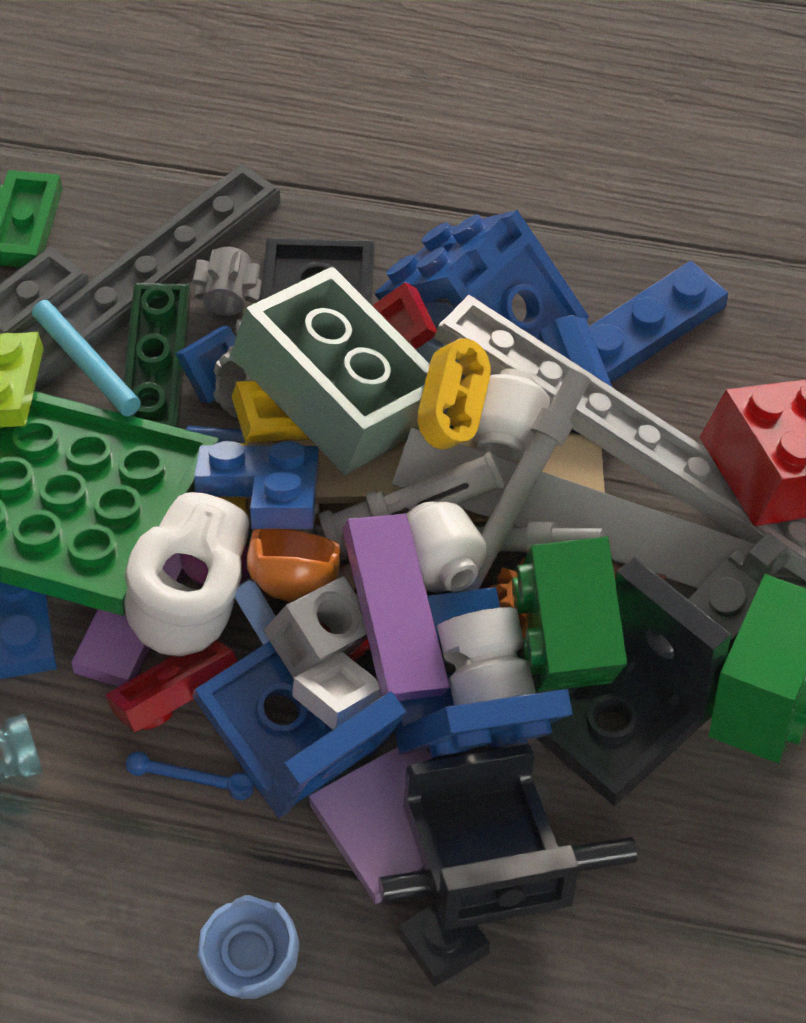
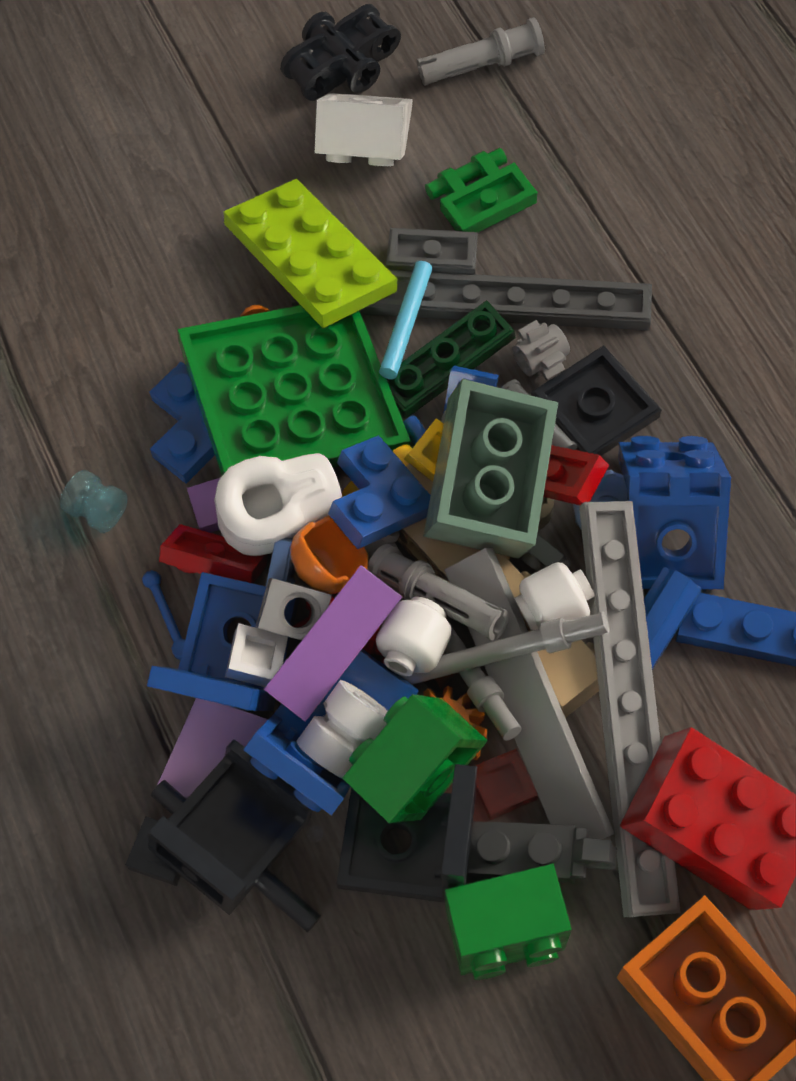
camera: 55 degrees right, 10 degrees up
(248, 947) = (61, 740): light blue hair -> none
(446, 390) = (518, 544): yellow beam -> none

